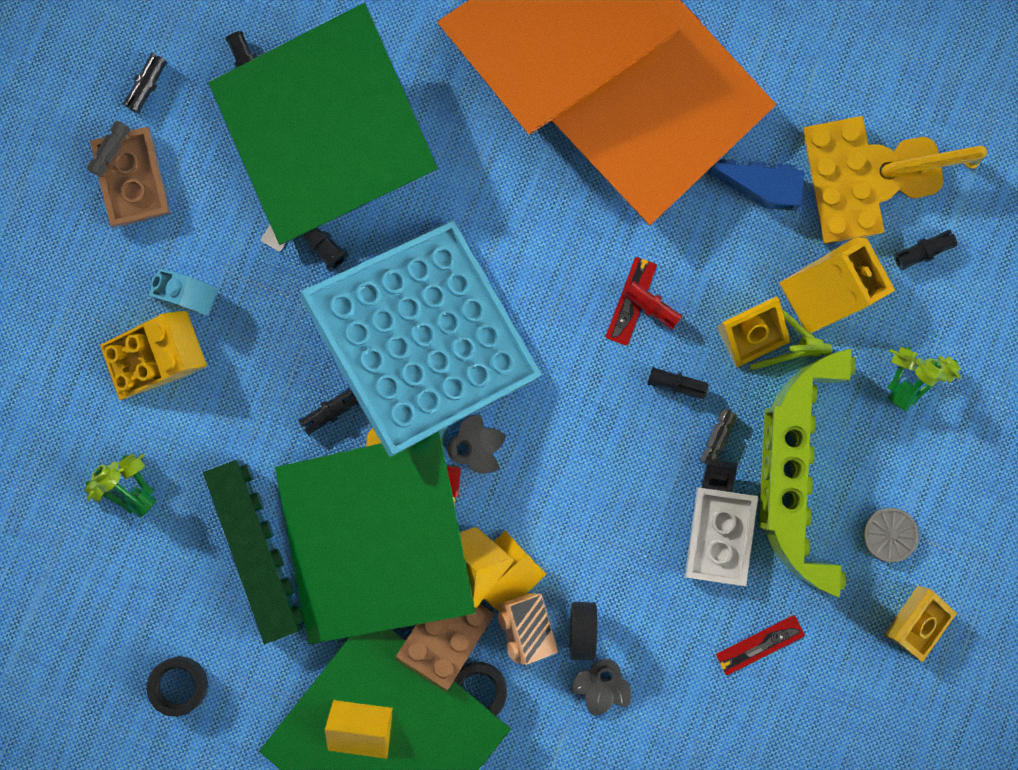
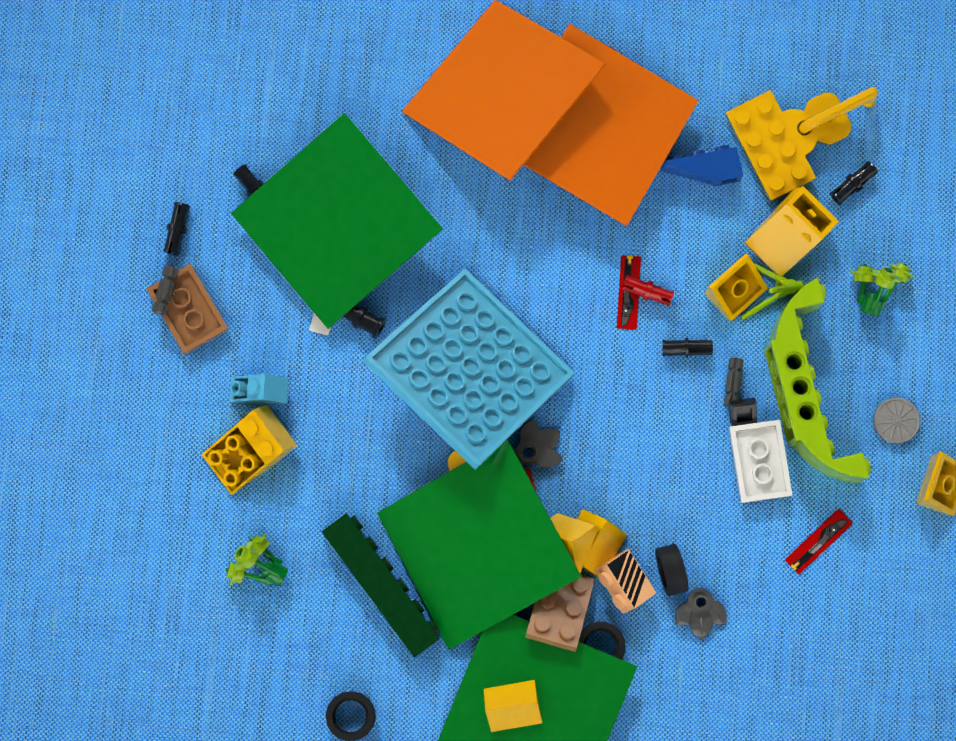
camera: 25 degrees left, 5 degrees down
(328, 411) = (408, 453): black pin -> none

